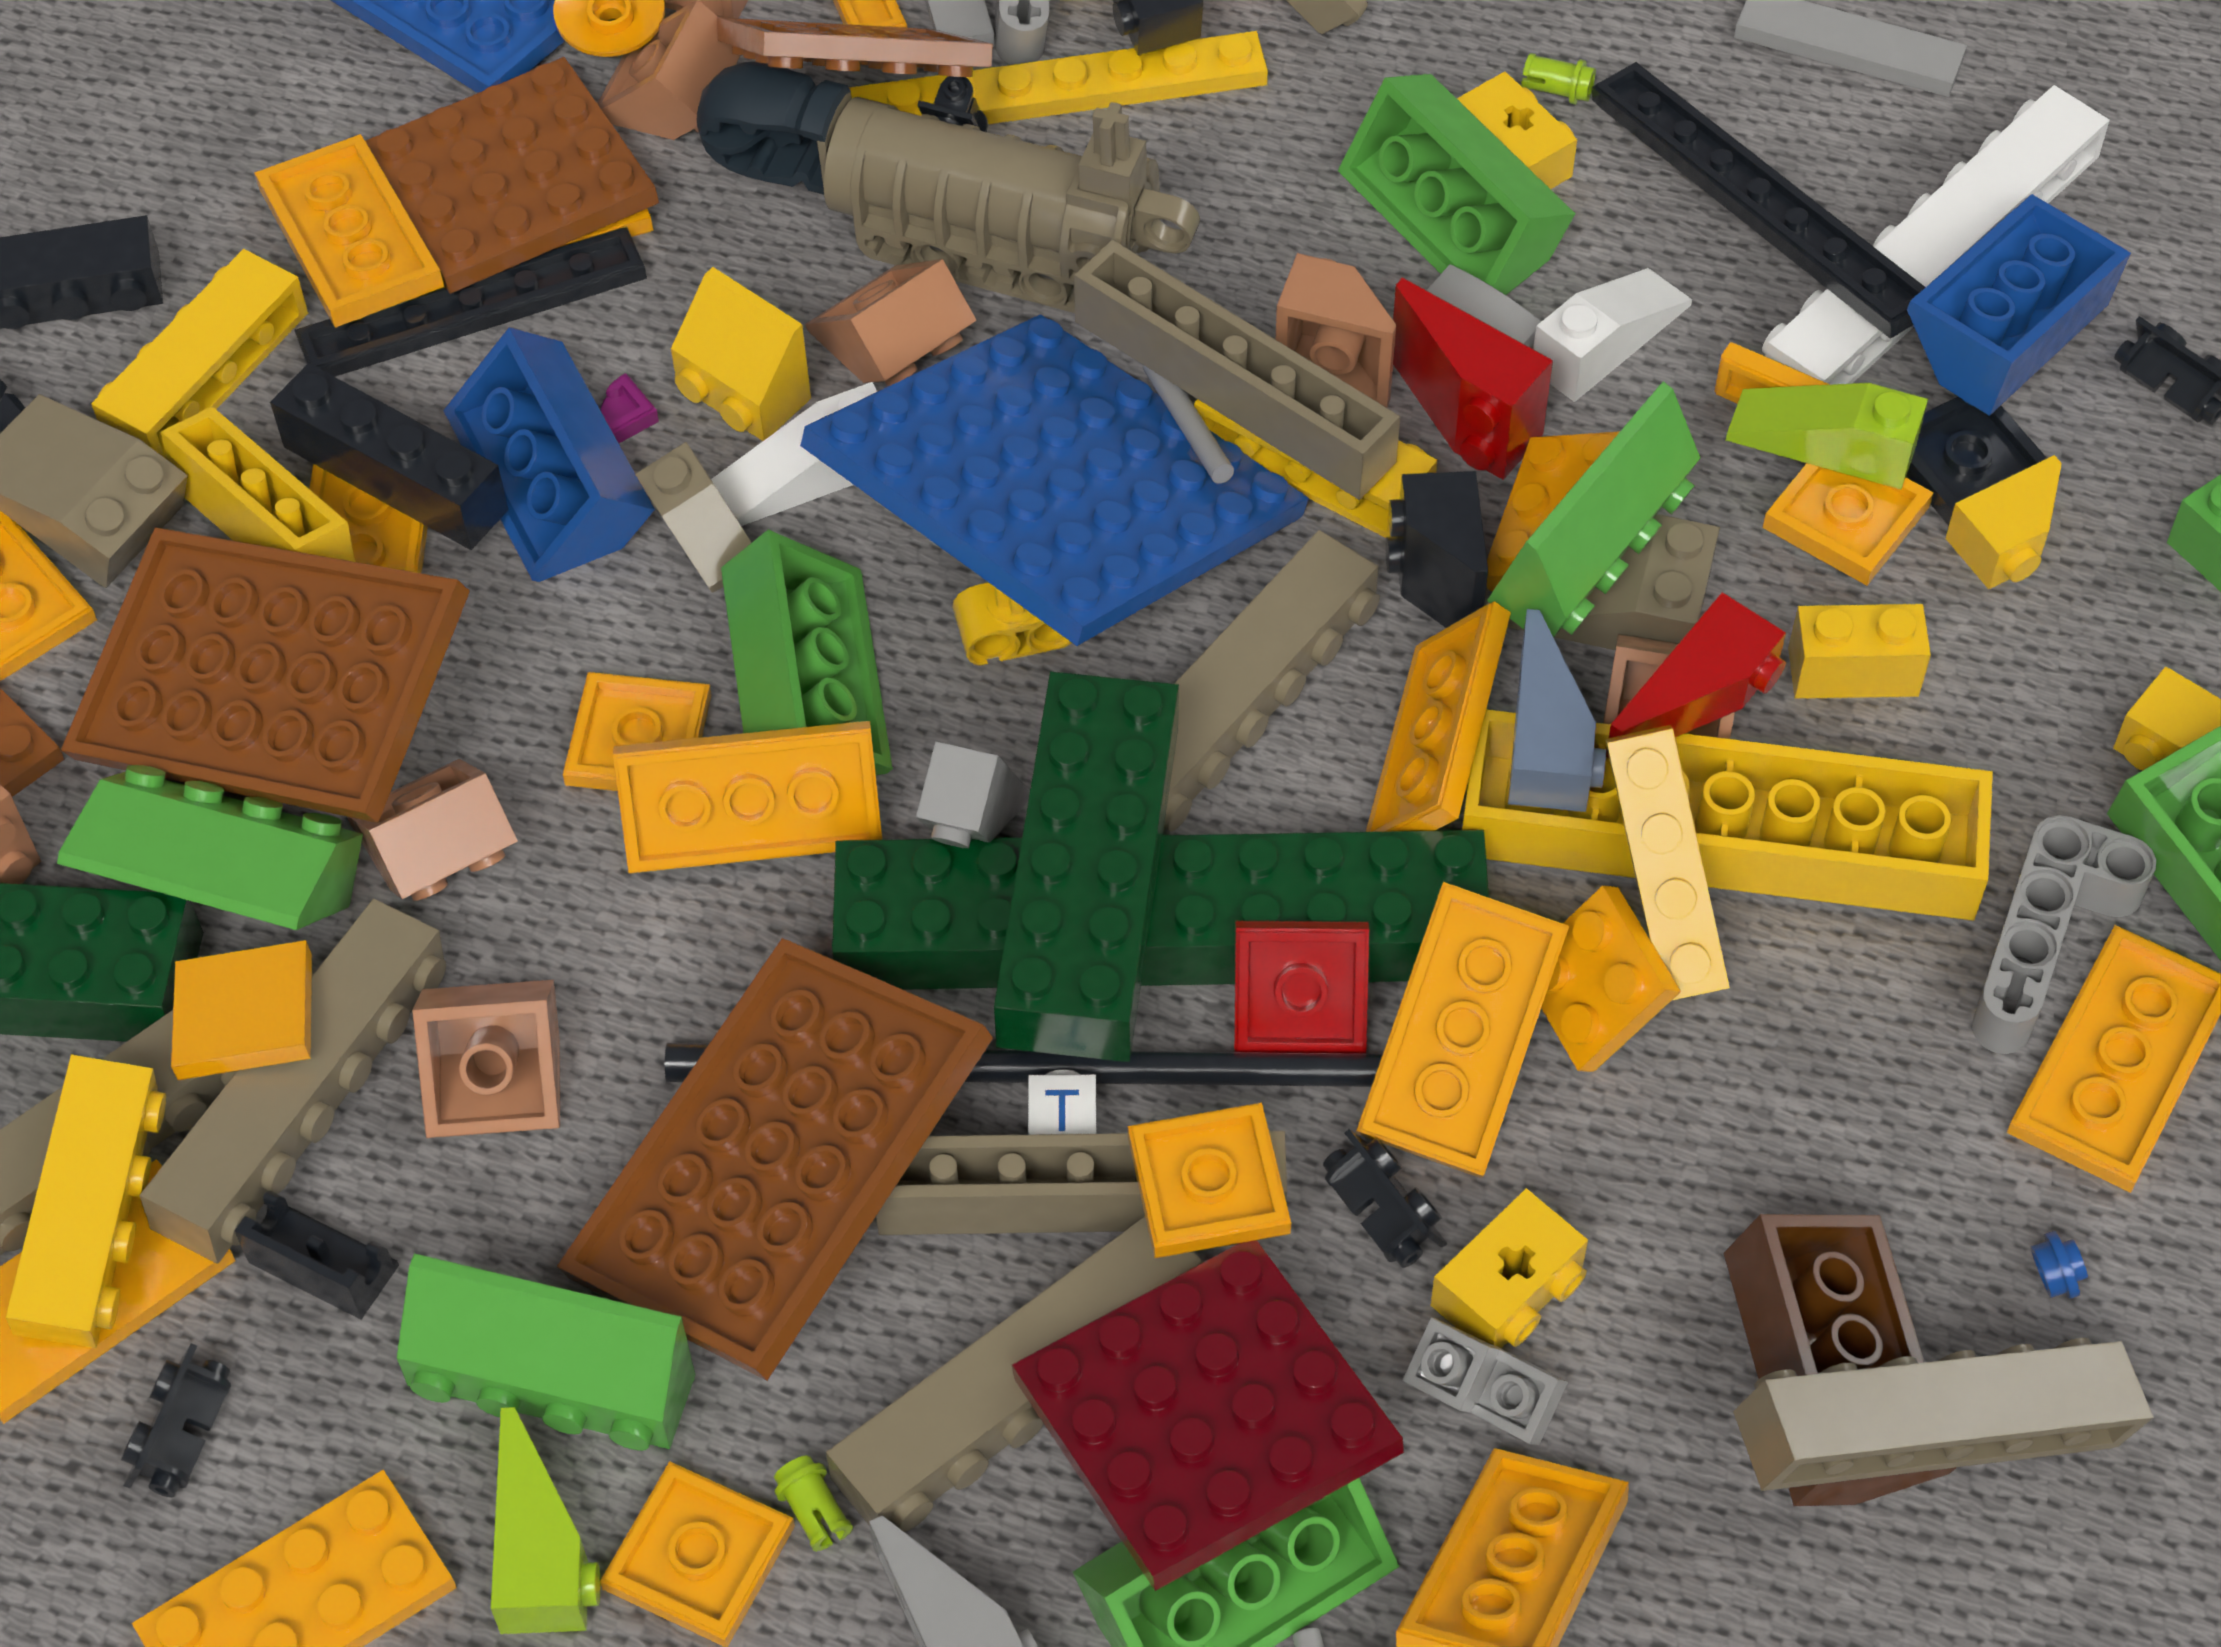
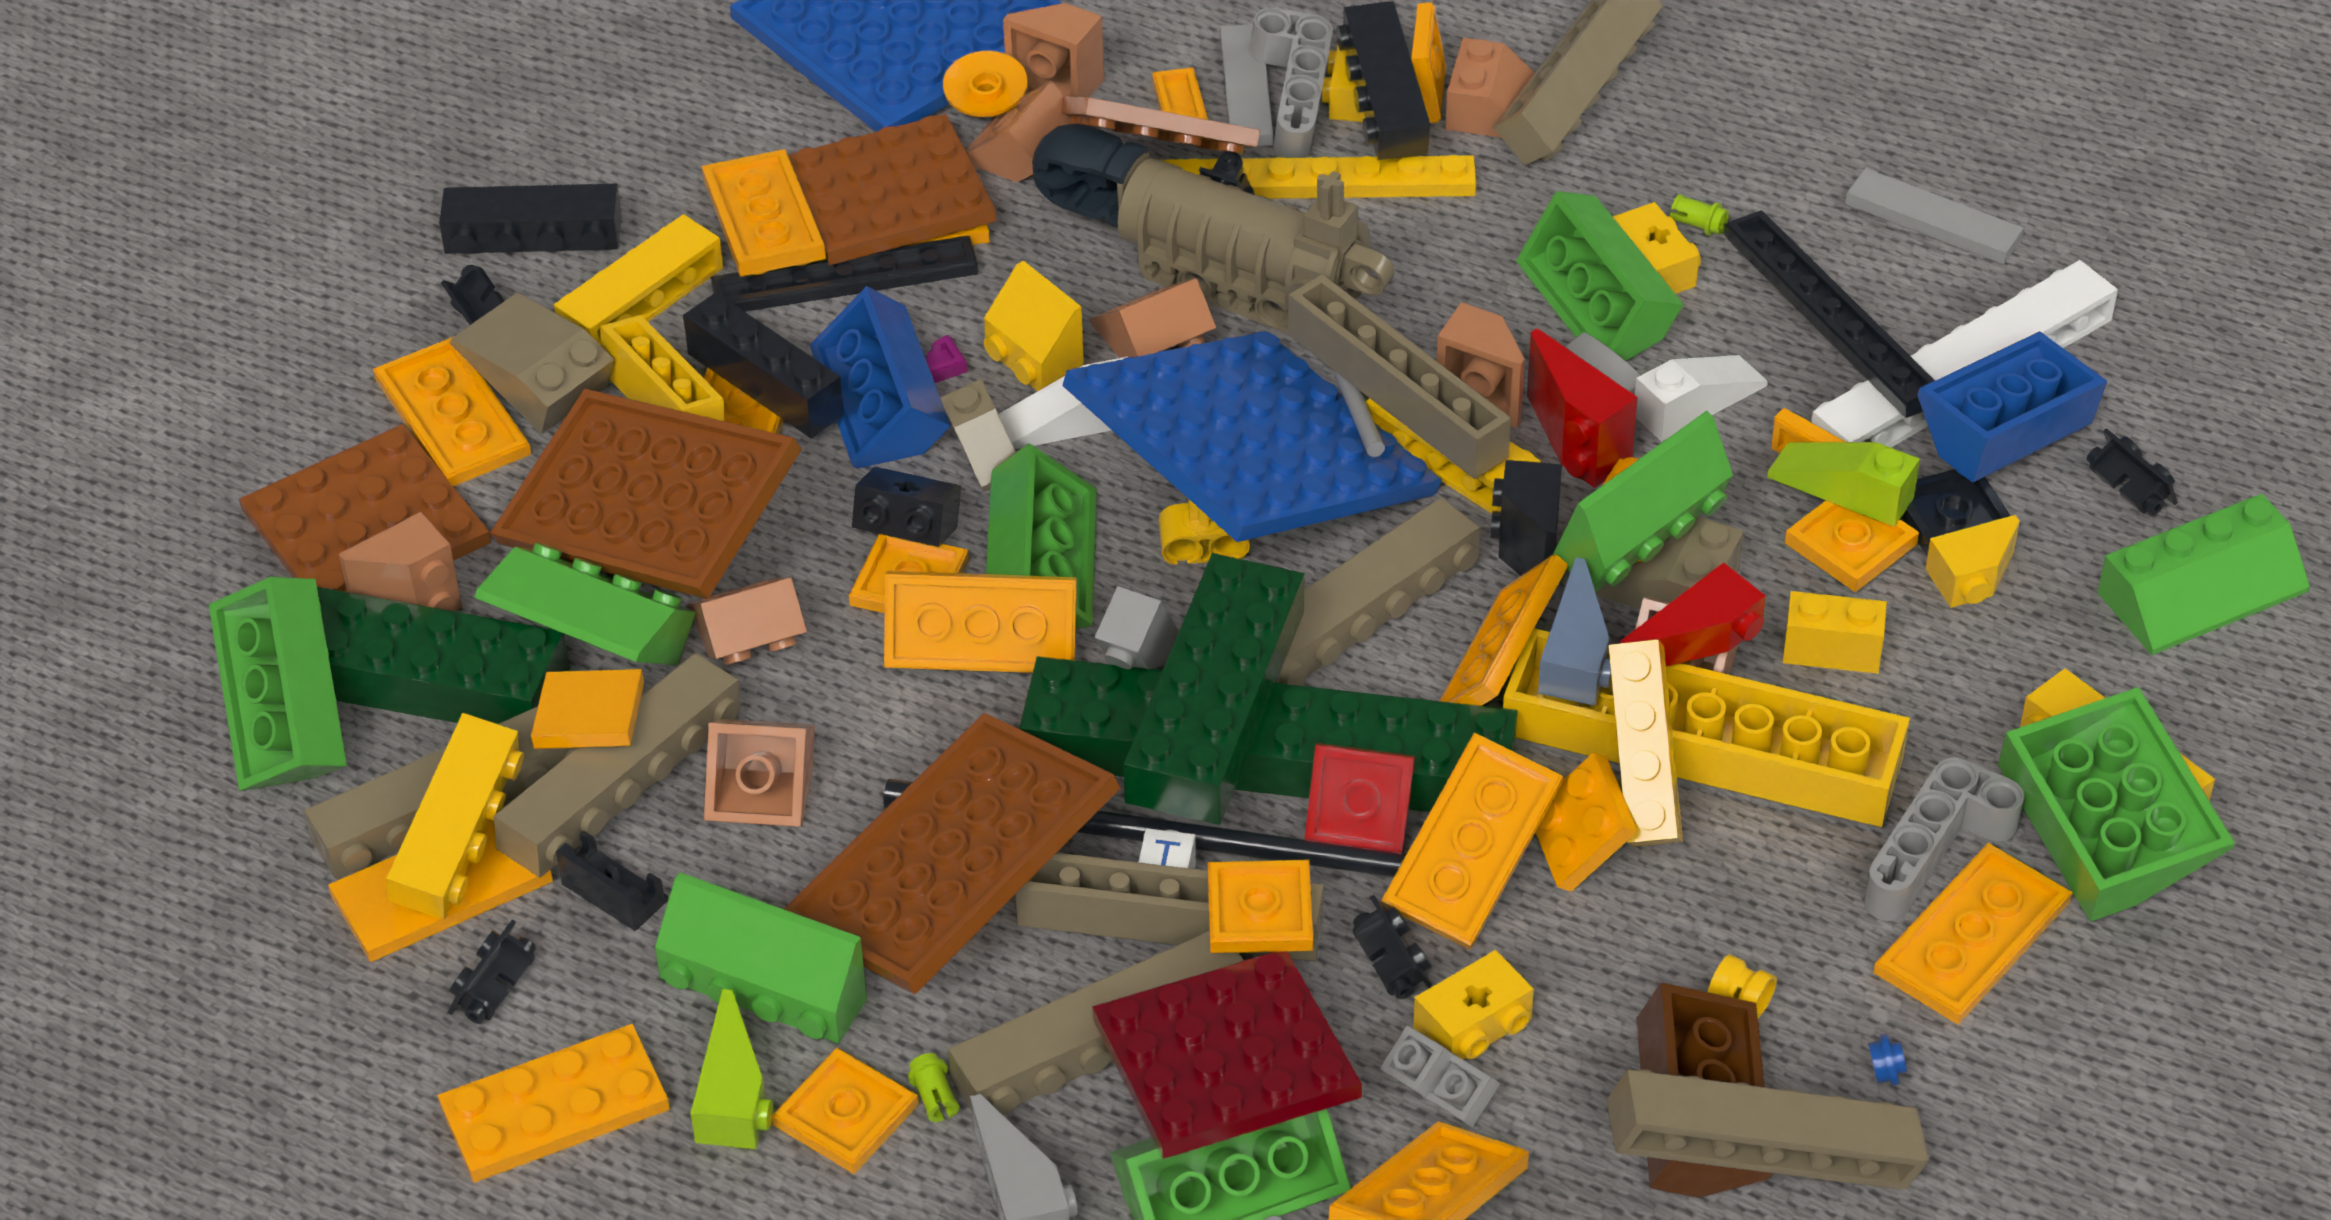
camera: 10 degrees right, 10 degrees down
(617, 636) = (906, 506): none -> black brick
(1849, 1185) = (1739, 982): none -> yellow wheel

